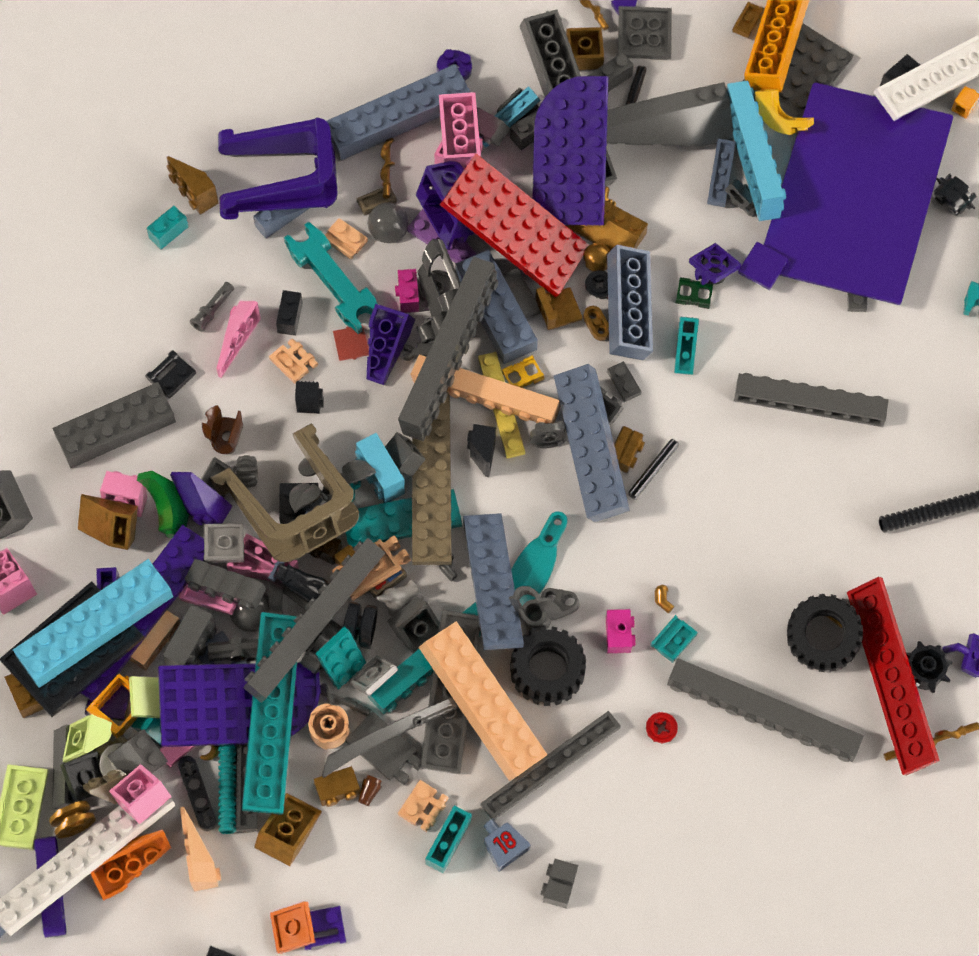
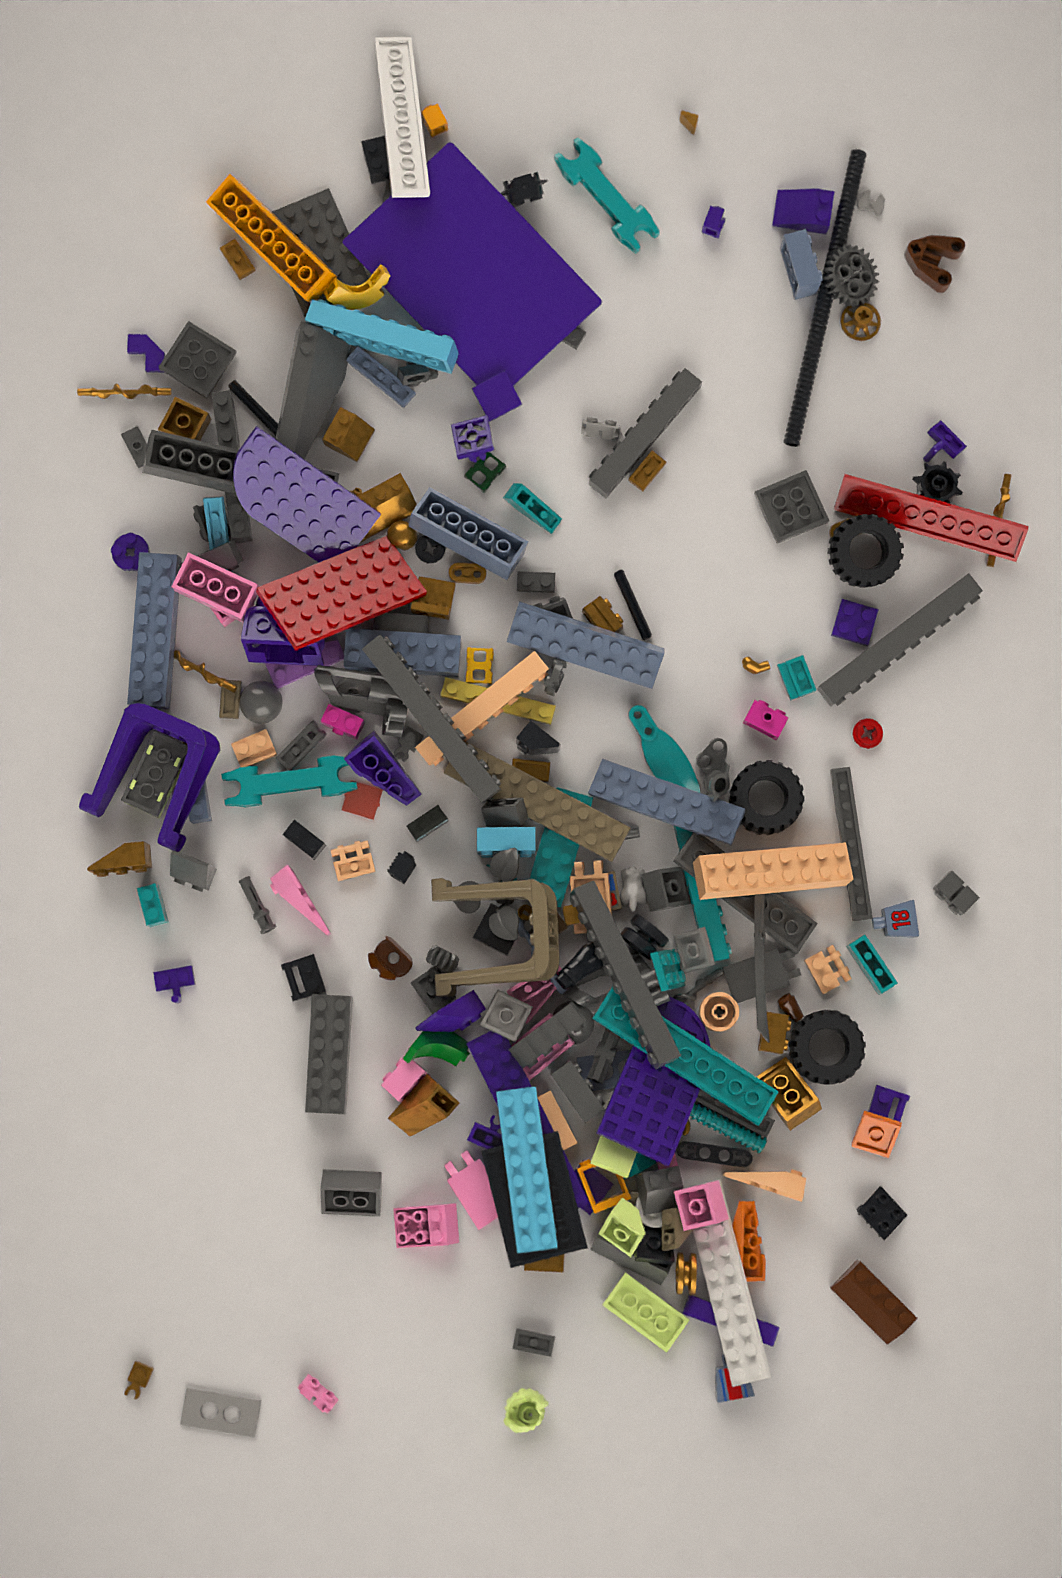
camera: 60 degrees left, 15 degrees up
(54, 597) = (473, 1190): none -> bright pink tile
(113, 276) = (174, 980): none -> dark purple plate
(212, 238) = (192, 871): none -> dark grey slope
(275, 167) = (156, 774): none -> dark grey piece
(349, 811) = (853, 1042): none -> black tyre
(360, 403) = (427, 823): none -> pearl dark grey panel
(368, 271) = (301, 746): none -> dark grey plate
(459, 466) = (534, 768): none -> pearl gold tile
(655, 172) = (348, 434): none -> pearl gold slope
(756, 664) = (854, 622): none -> dark purple plate
(778, 419) = (647, 471): none -> pearl gold plate
(794, 369) = (593, 426): none -> light grey hinge
(825, 554) = (791, 506): none -> dark grey plate

